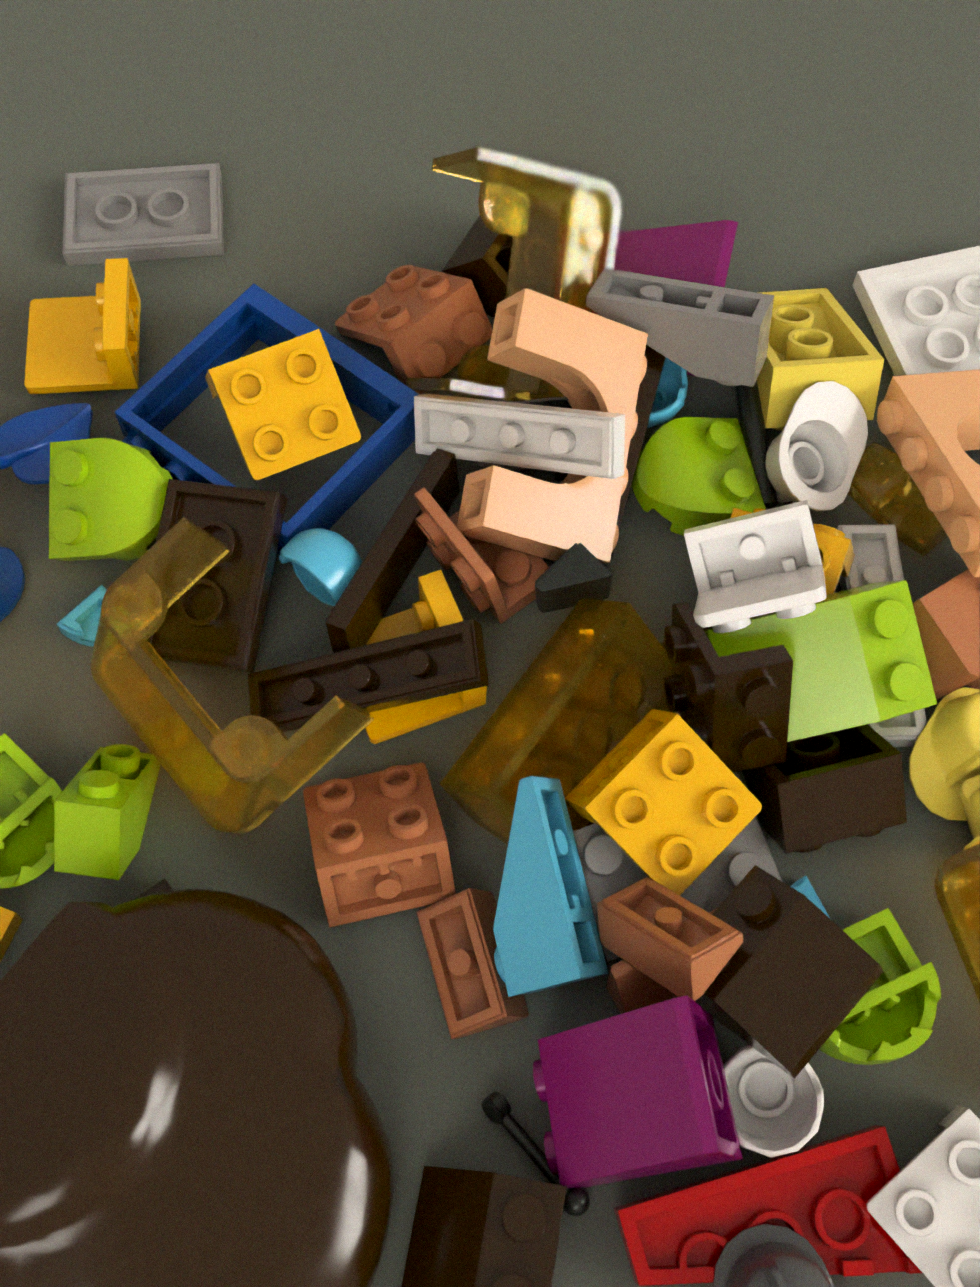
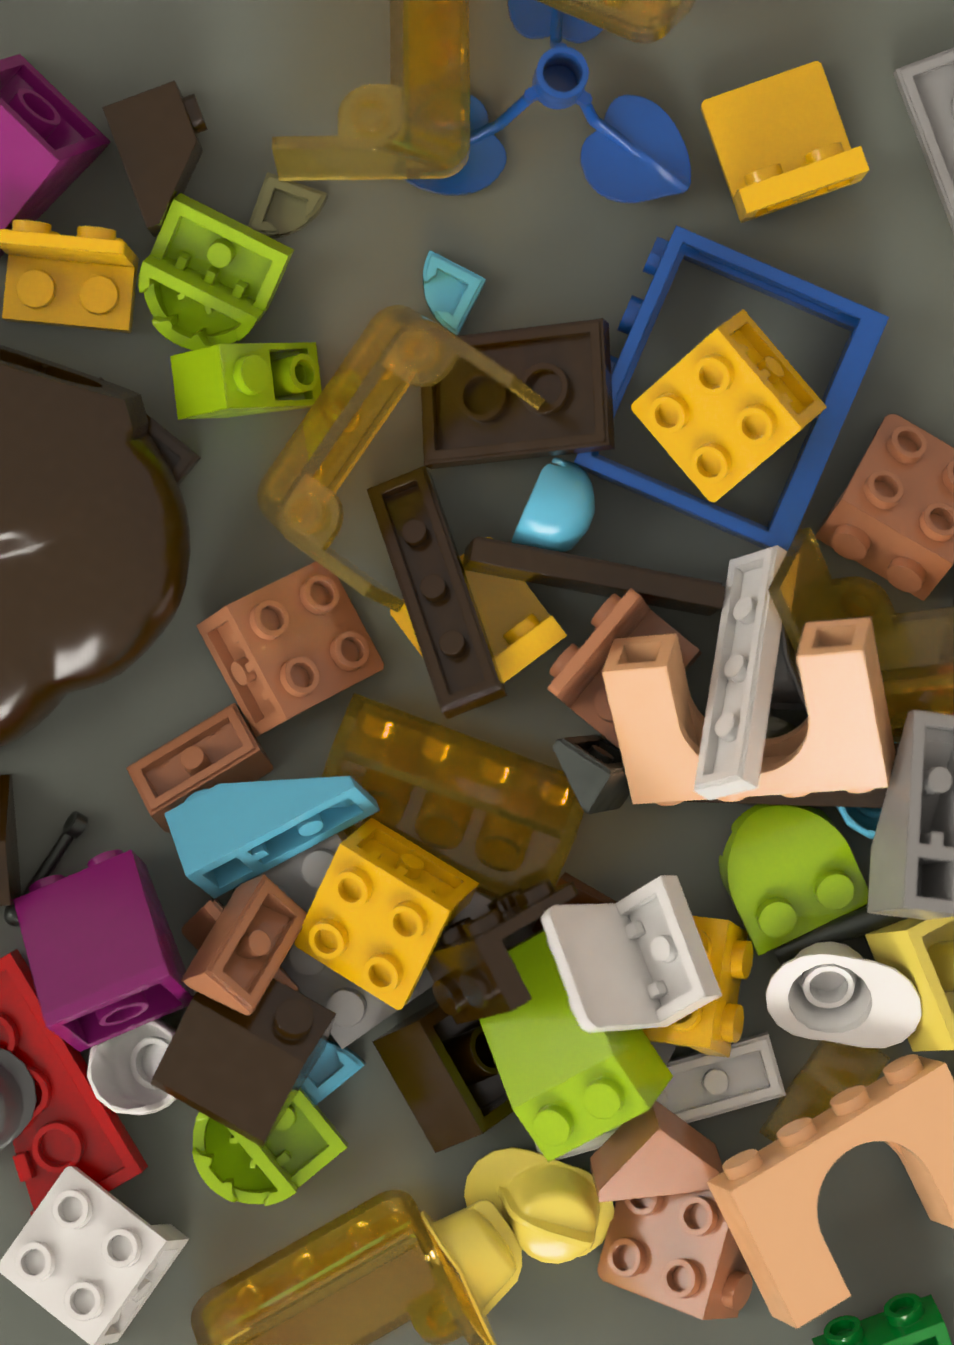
camera: 75 degrees right, 25 degrees up
(103, 499) = (575, 251): lime slope -> none

